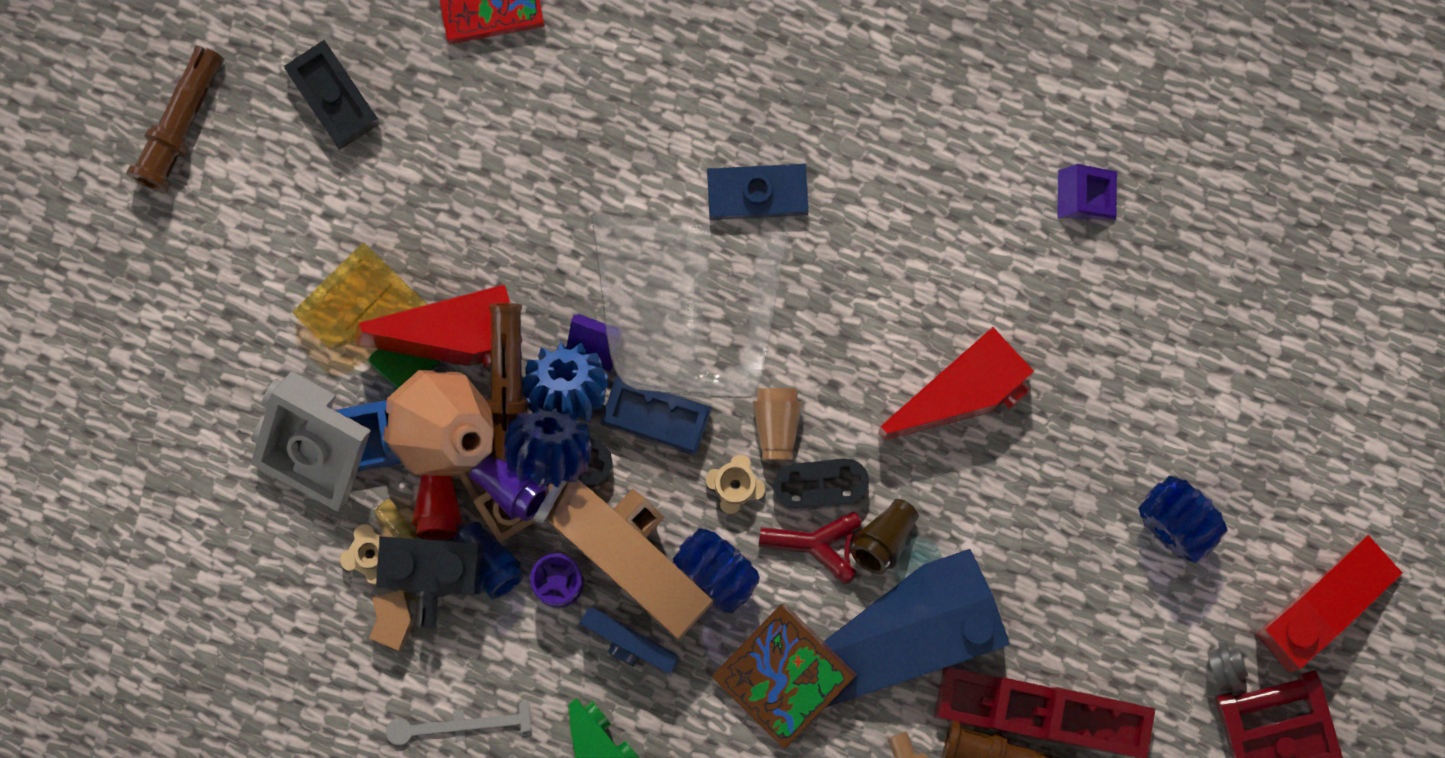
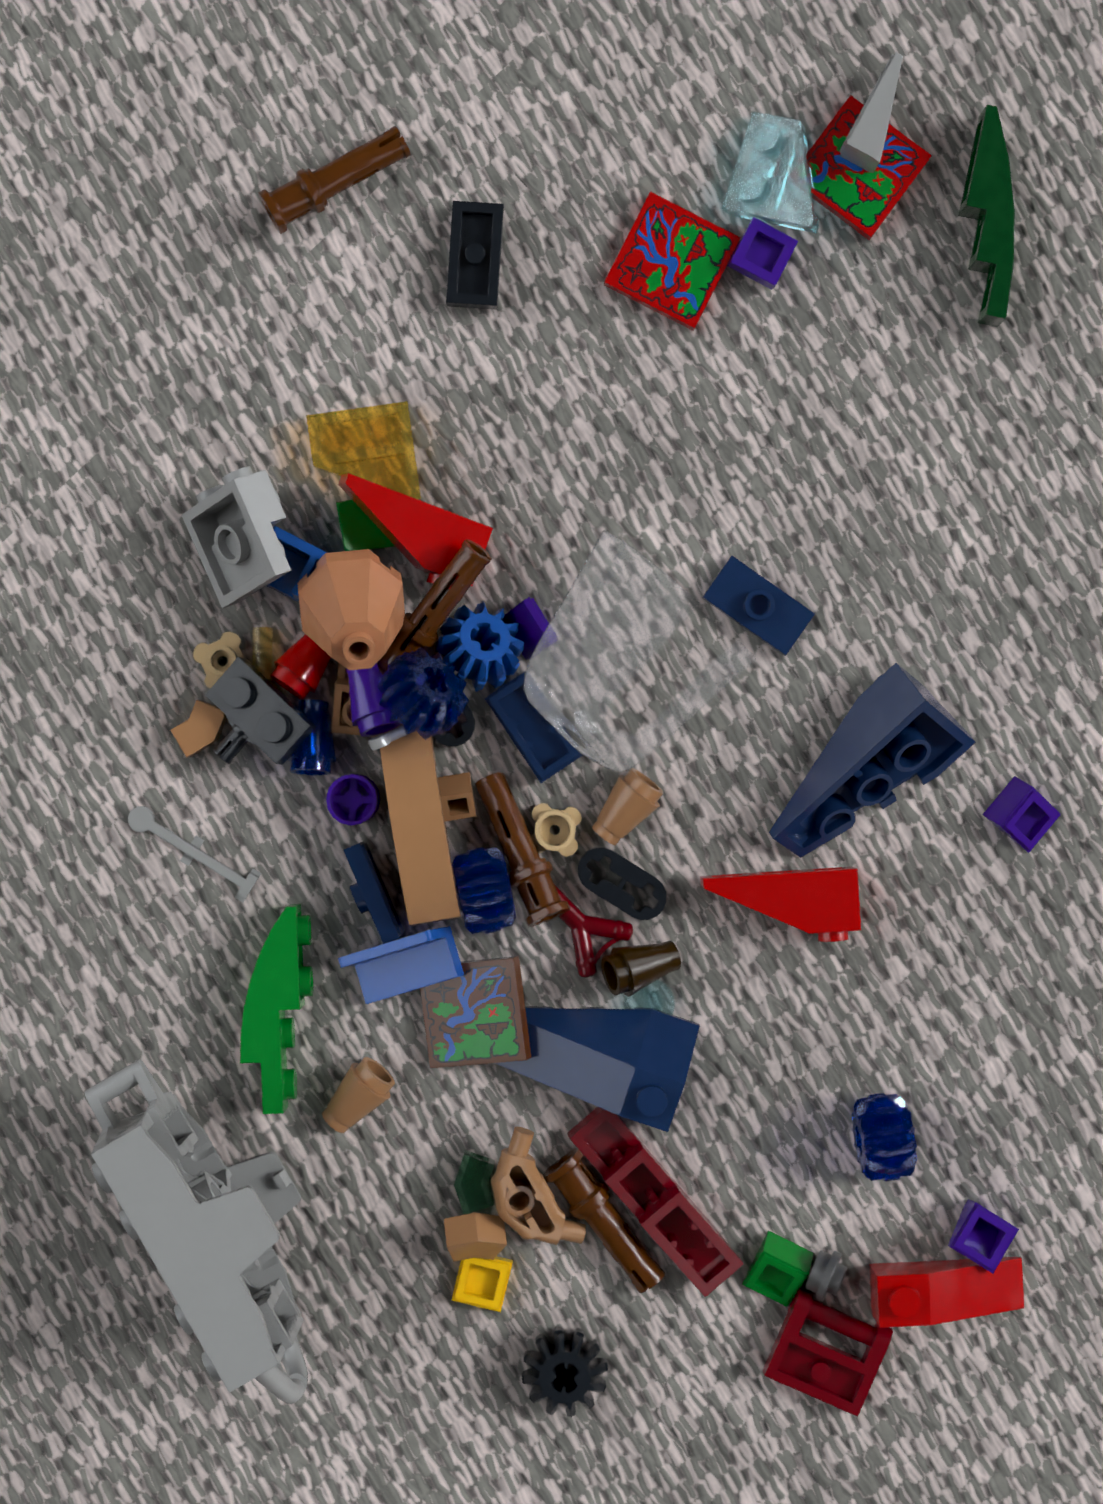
camera: 30 degrees right, 10 degrees up
(698, 678) = (406, 964): none -> blue panel
(740, 528) = (528, 871): none -> reddish brown pin
(935, 224) = (880, 744): none -> dark blue wedge
(1187, 694) = (778, 1269): none -> green slope
(1322, 537) = (982, 1236): none -> dark purple slope

